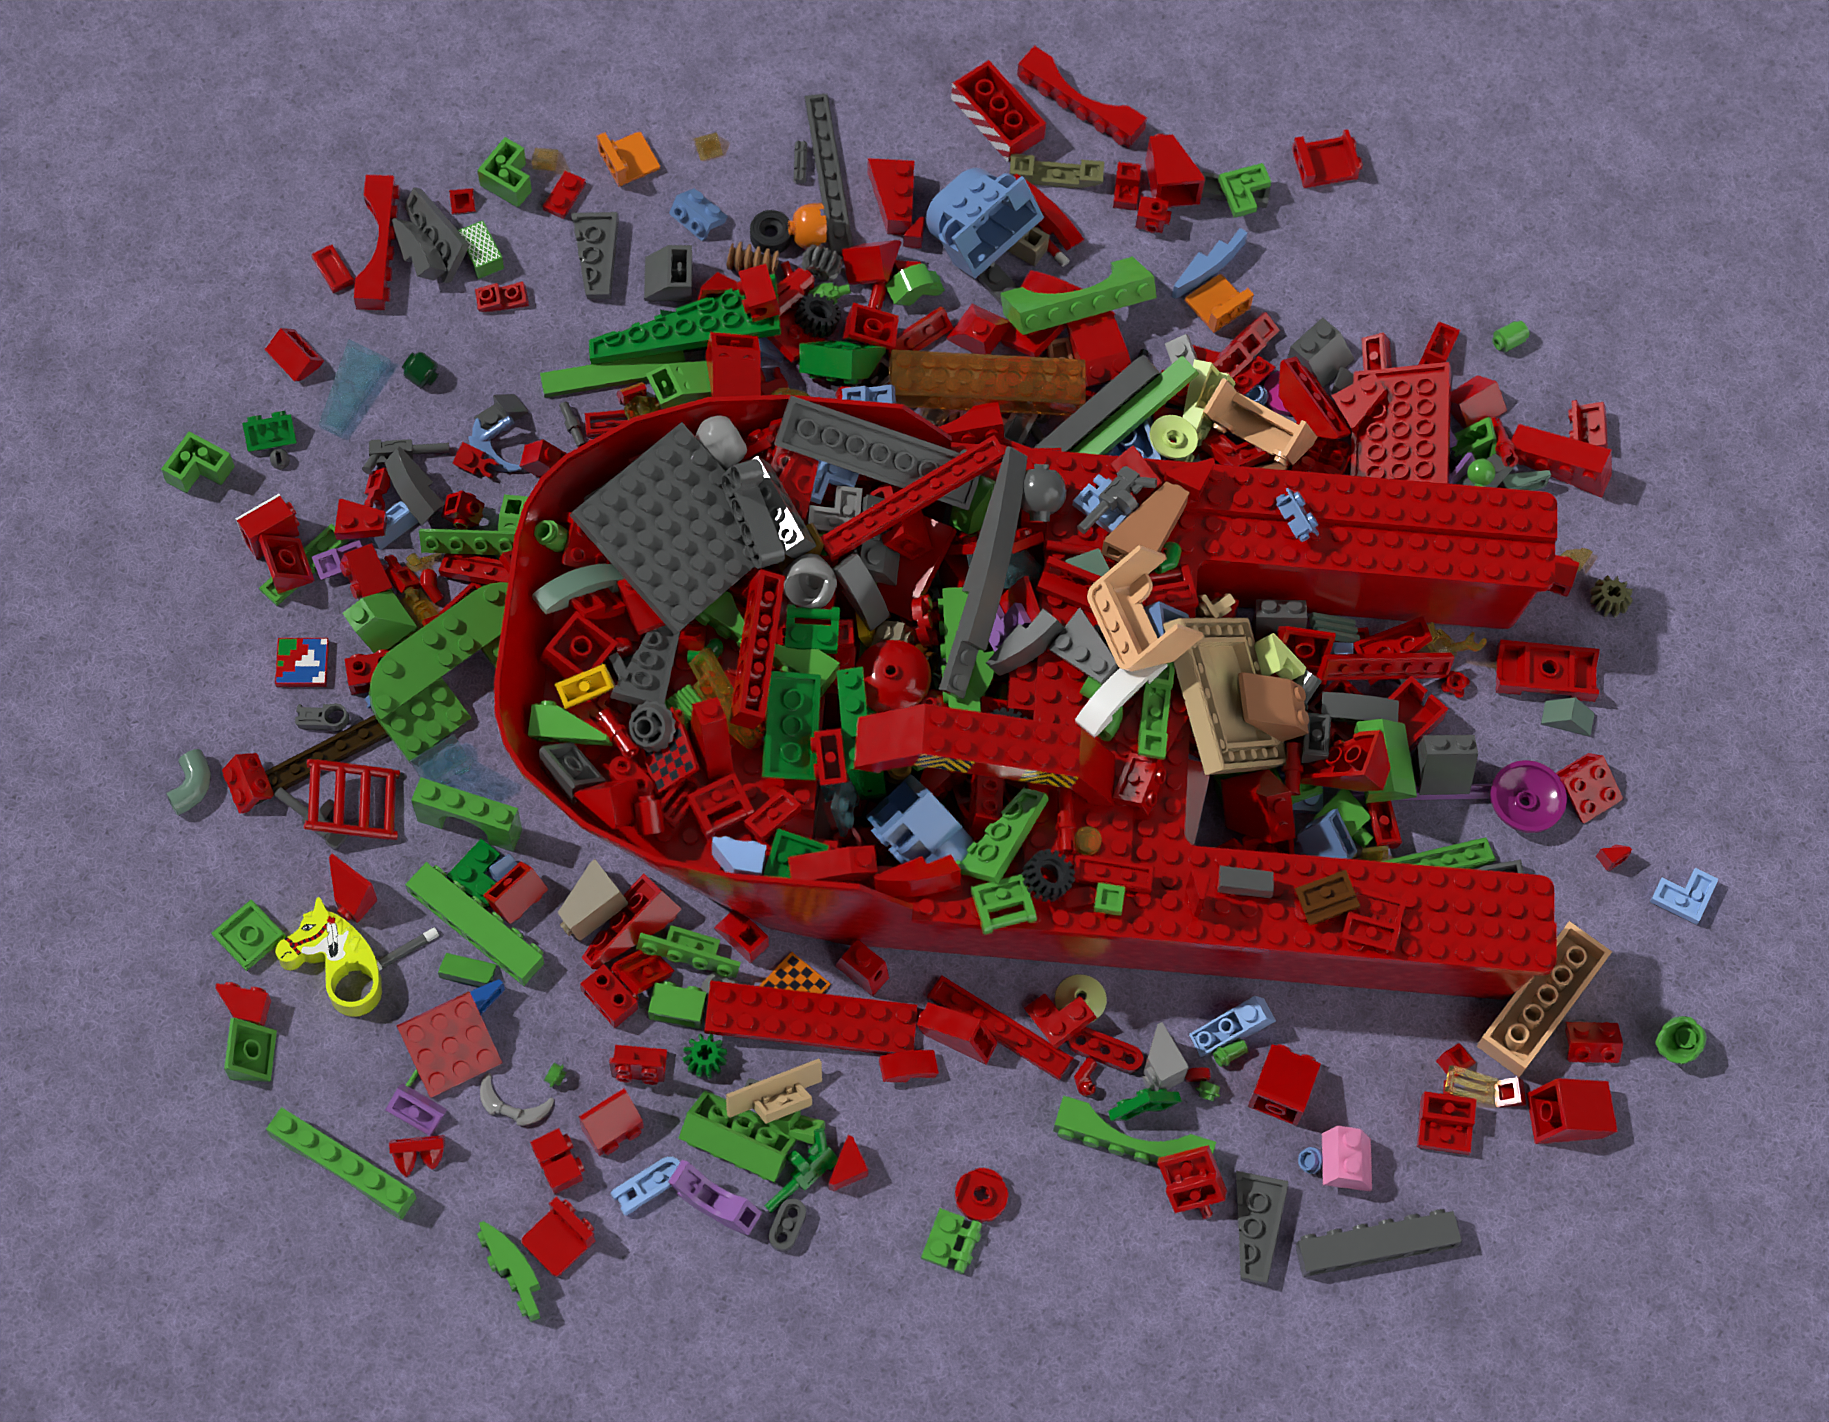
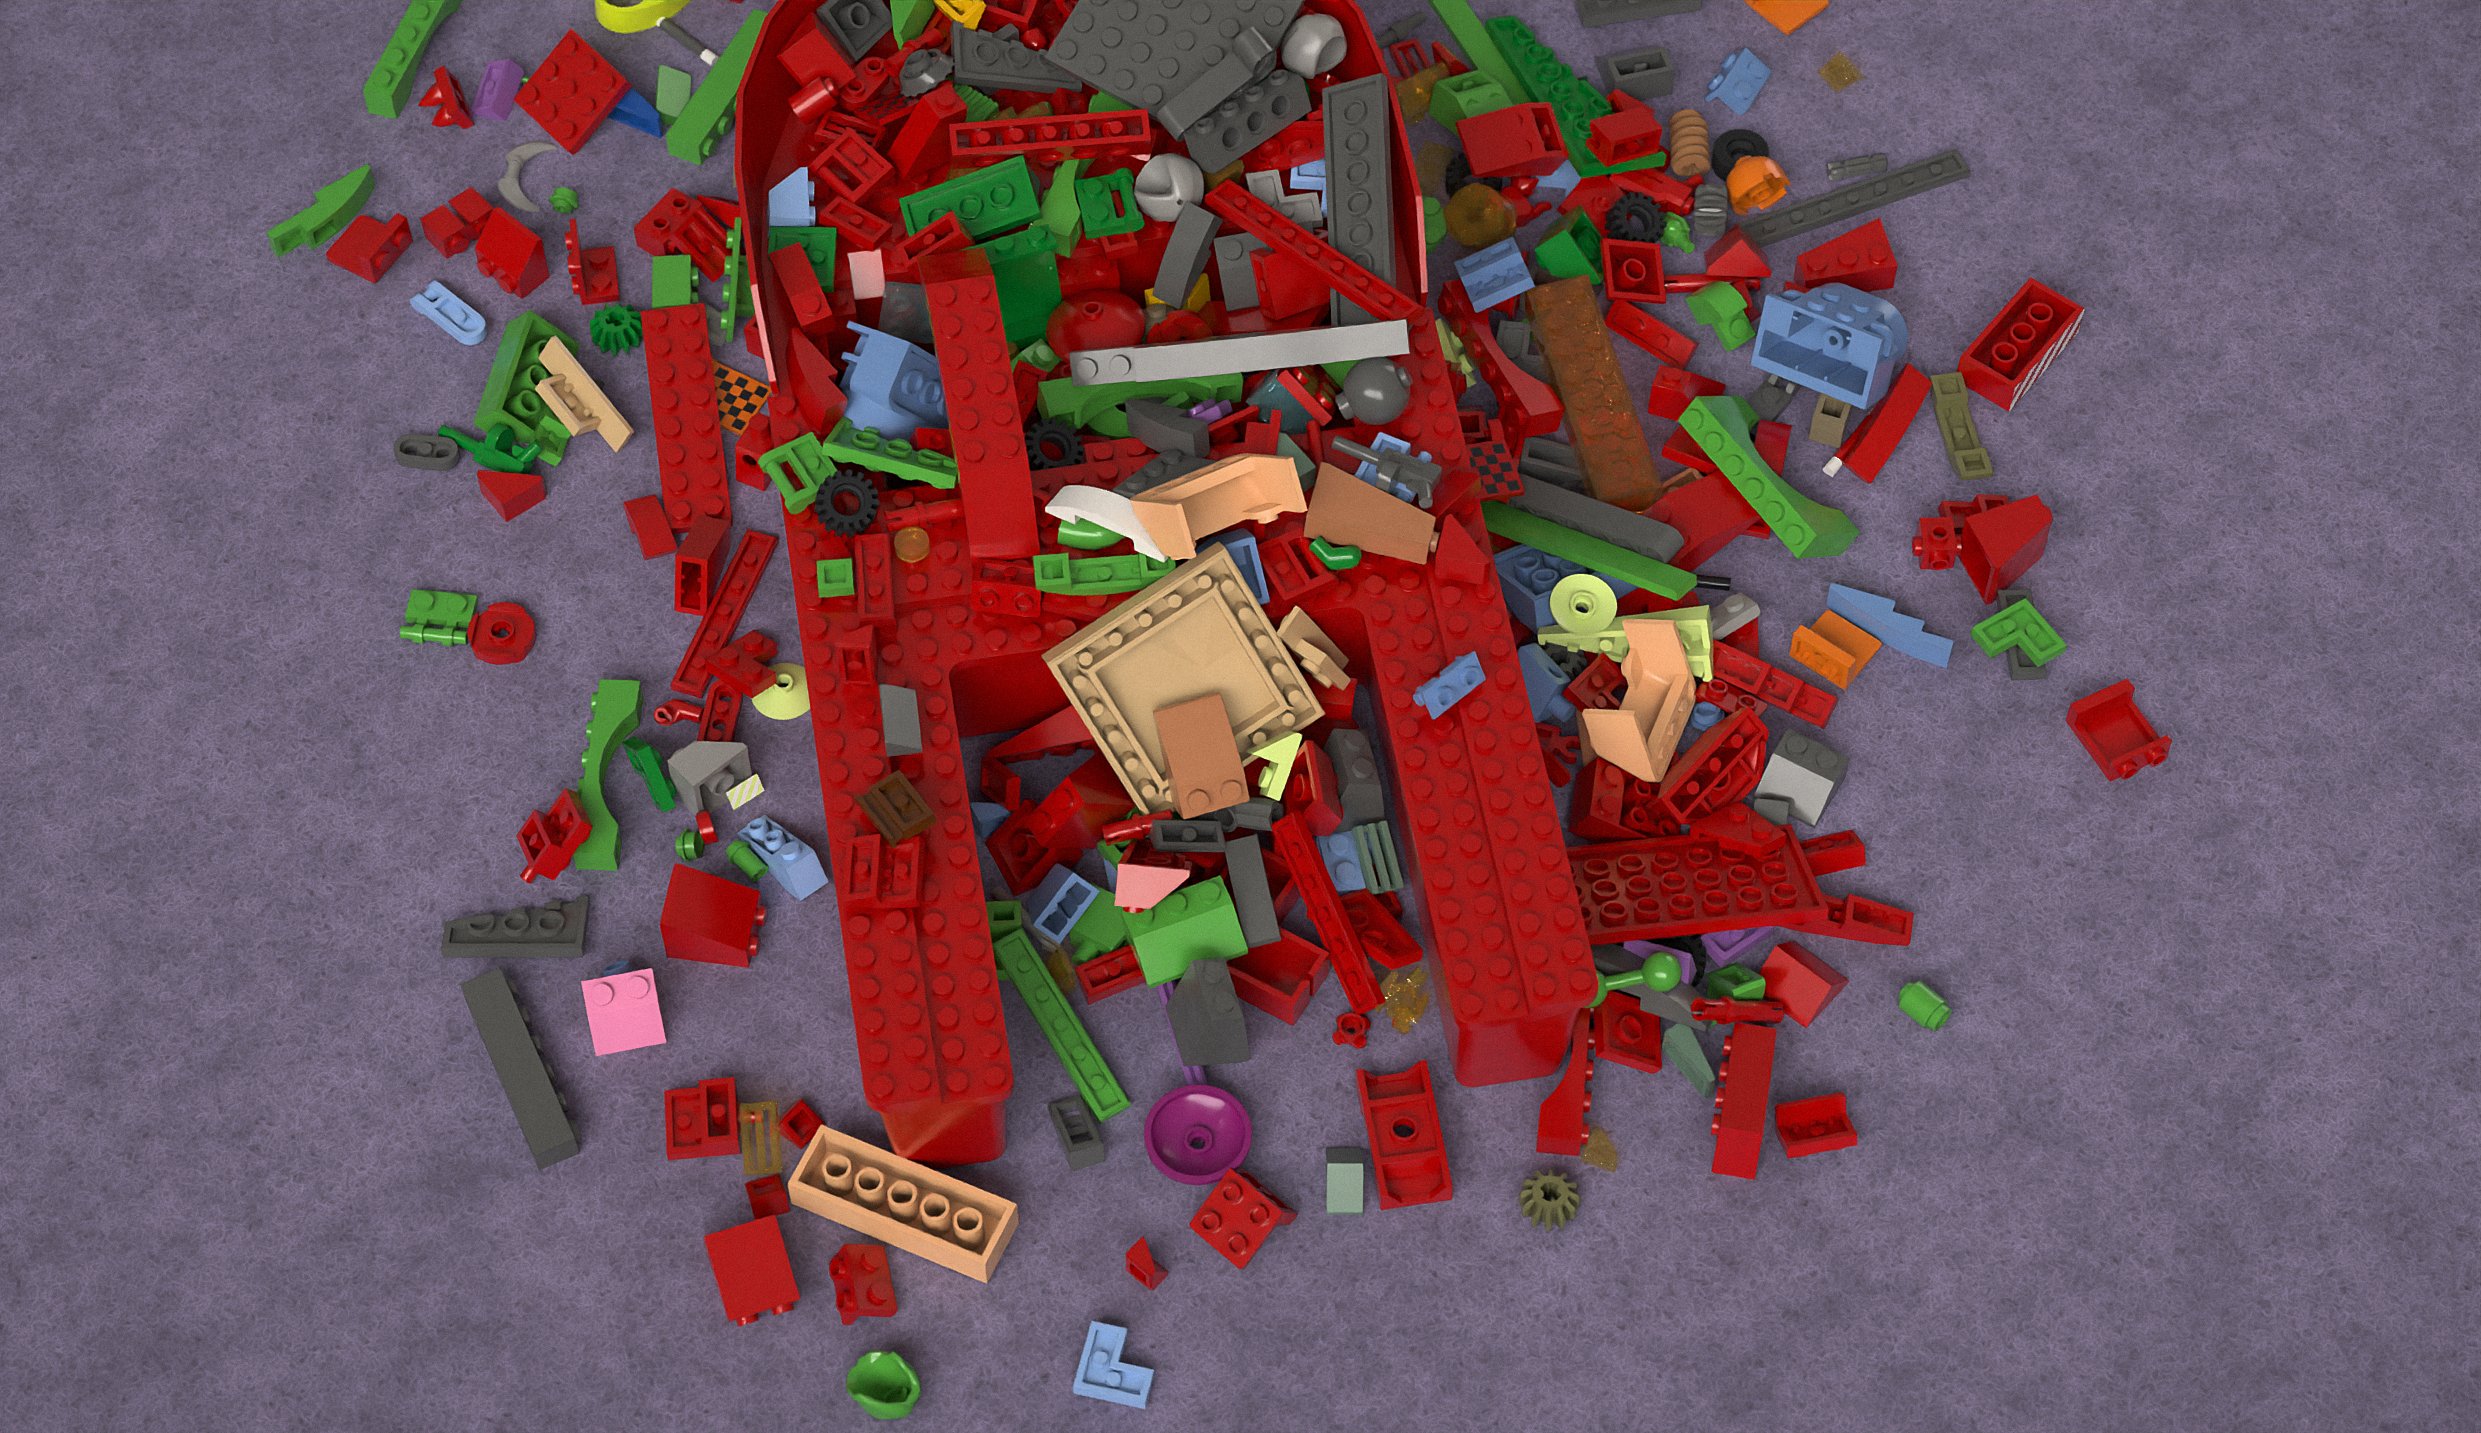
camera: 80 degrees right, 10 degrees down
(714, 1201) = (444, 368): medium lavender arch -> none
(1118, 121) = (2069, 480): red arch -> none

